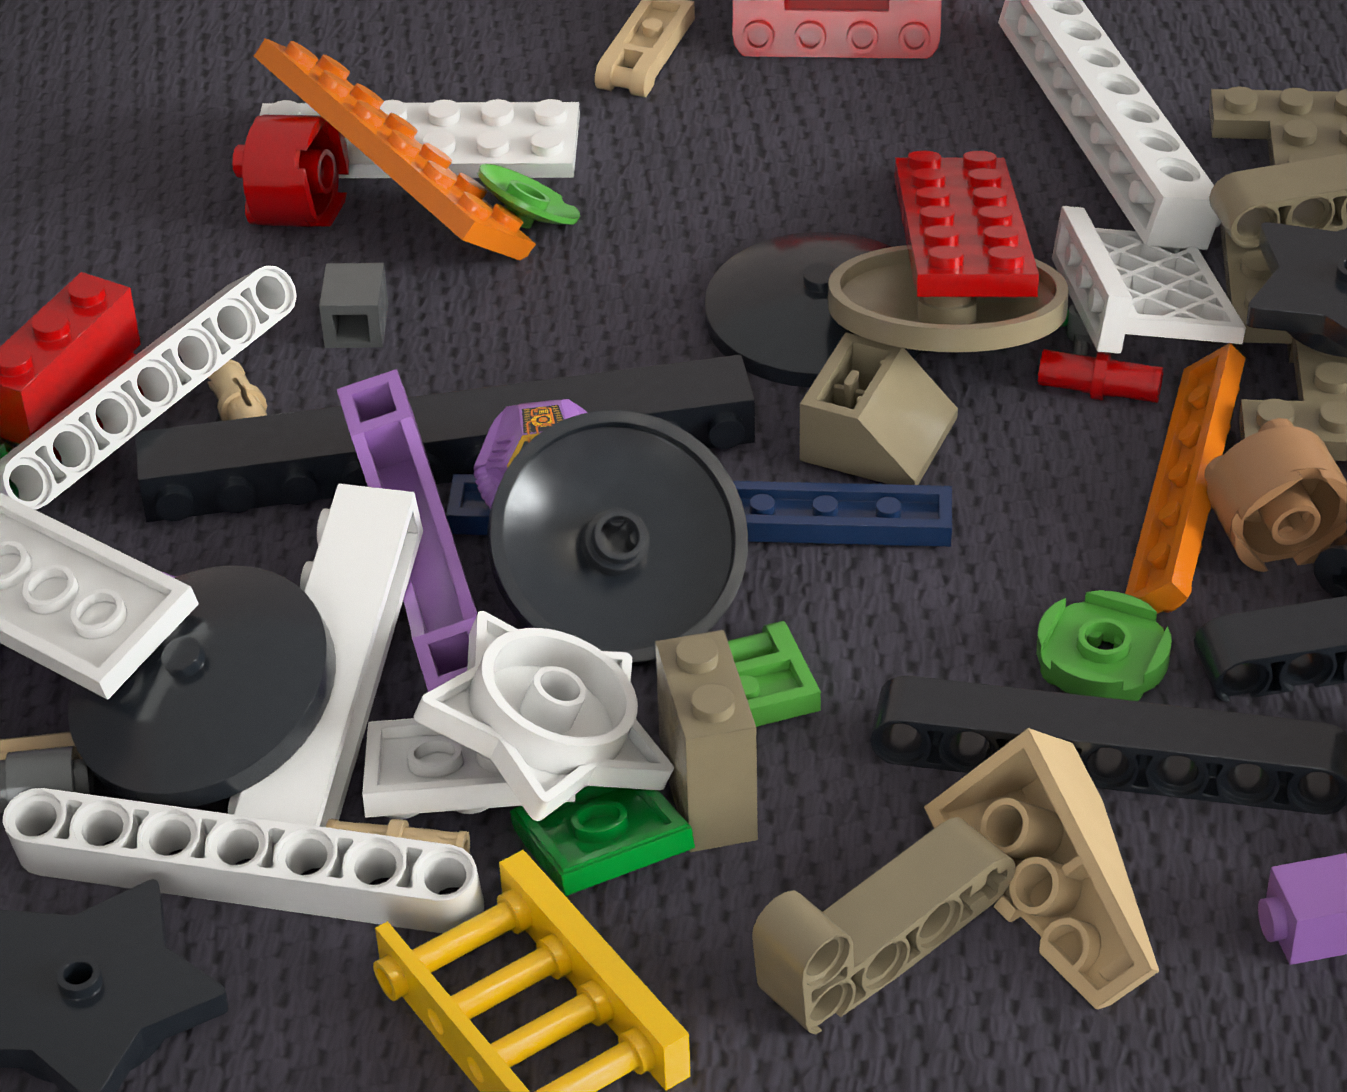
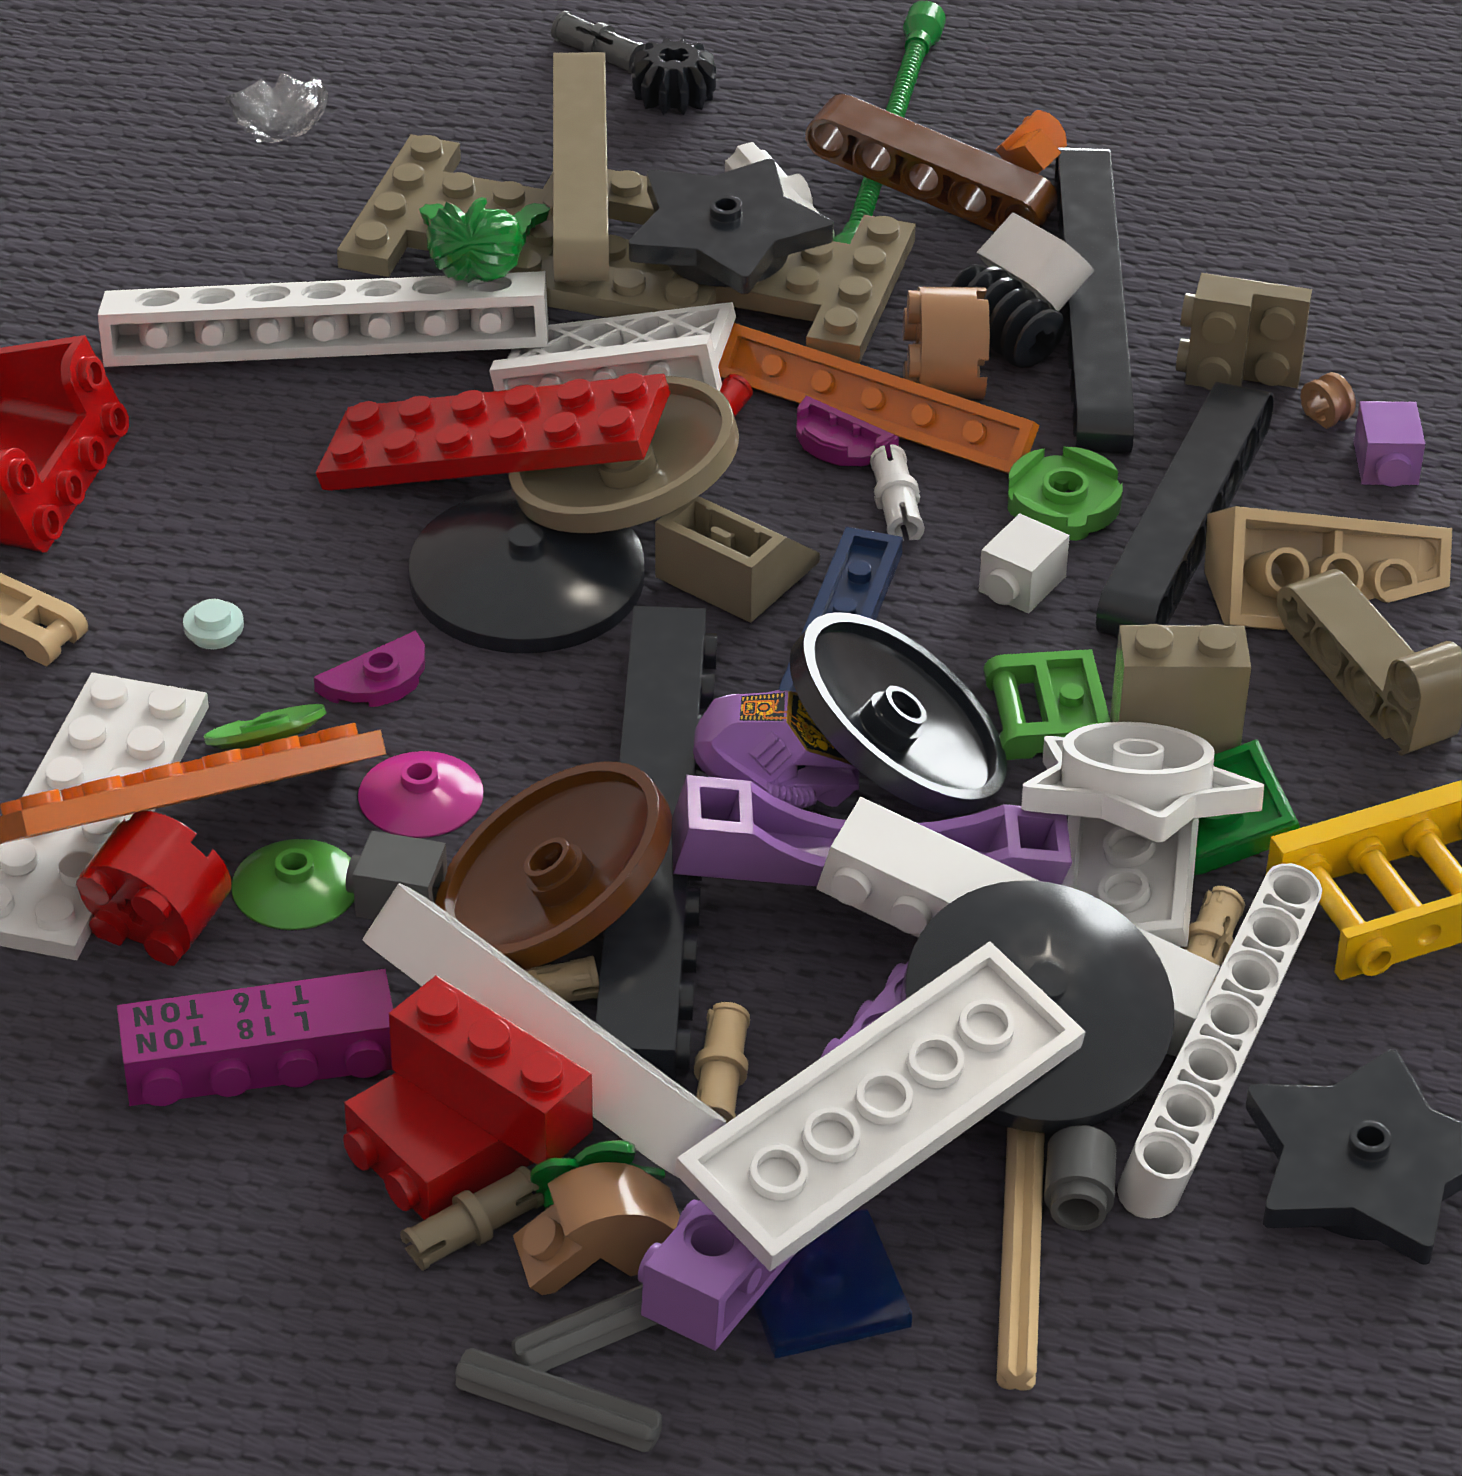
camera: 80 degrees left, 0 degrees up
(142, 251) = (256, 1037): none -> magenta brick
(165, 532) = (722, 1062): none -> tan pin
(317, 367) = (559, 861): none -> reddish brown dish
(398, 256) = (293, 884): none -> bright green dish
(495, 310) = (420, 794): none -> dark pink dish
(641, 254) = (377, 675): none -> magenta plate
(670, 151) = (213, 623): none -> light aqua plate
(948, 623) = (1023, 563): none -> white brick
(1044, 524) = (897, 492): none -> white pin
(1117, 466) = (839, 436): none -> magenta plate
(1202, 141) = (478, 243): none -> green hair

